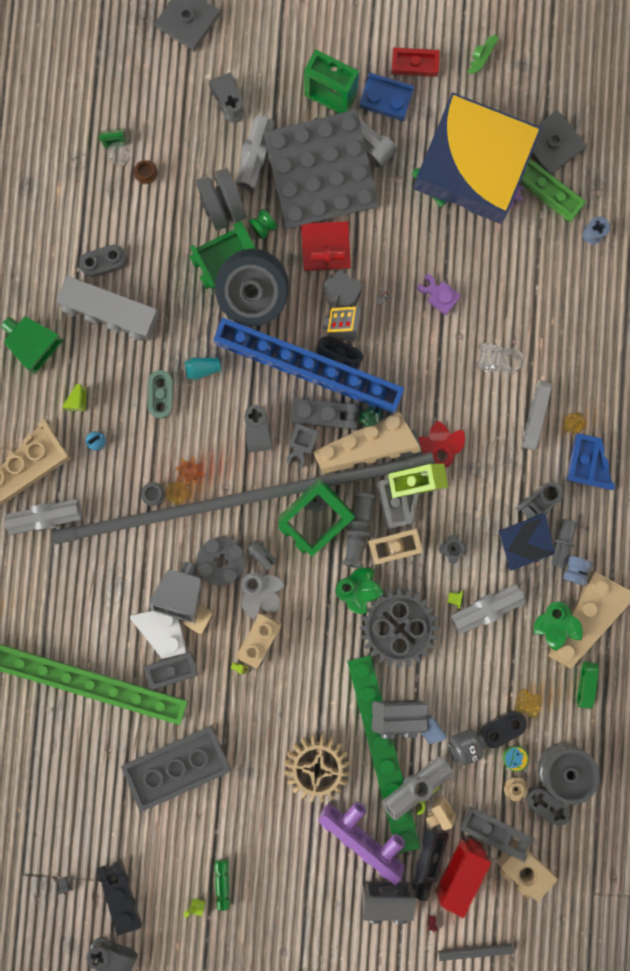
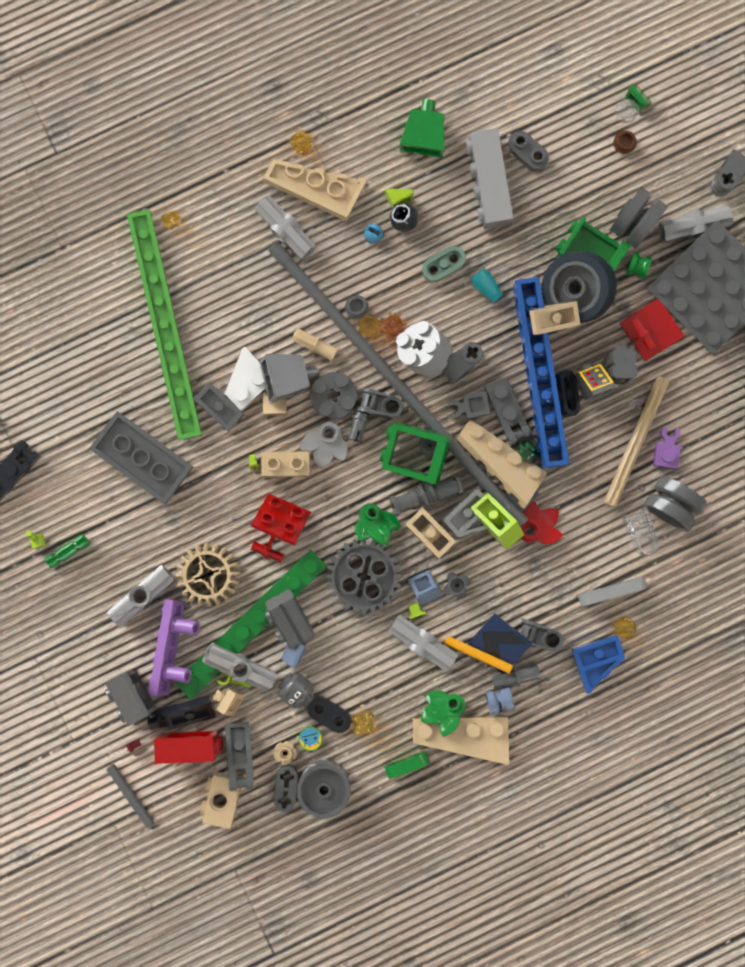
camera: 60 degrees right, 0 degrees up
(97, 405) = (404, 217): none -> black piece
(165, 551) = (315, 344): none -> tan axle
(227, 456) = (424, 349): none -> brick
(252, 525) = (378, 404): none -> dark grey piece
(267, 324) = (554, 317): none -> tan slope
(304, 854) = (130, 606): none -> light grey piece
(306, 675) = (281, 521): none -> red plate
(416, 317) = (636, 441): none -> tan axle
(438, 578) = (424, 587): none -> sand blue slope
(492, 316) = (675, 503): none -> dark grey wheel
(525, 565) = (478, 654): none -> light orange bar

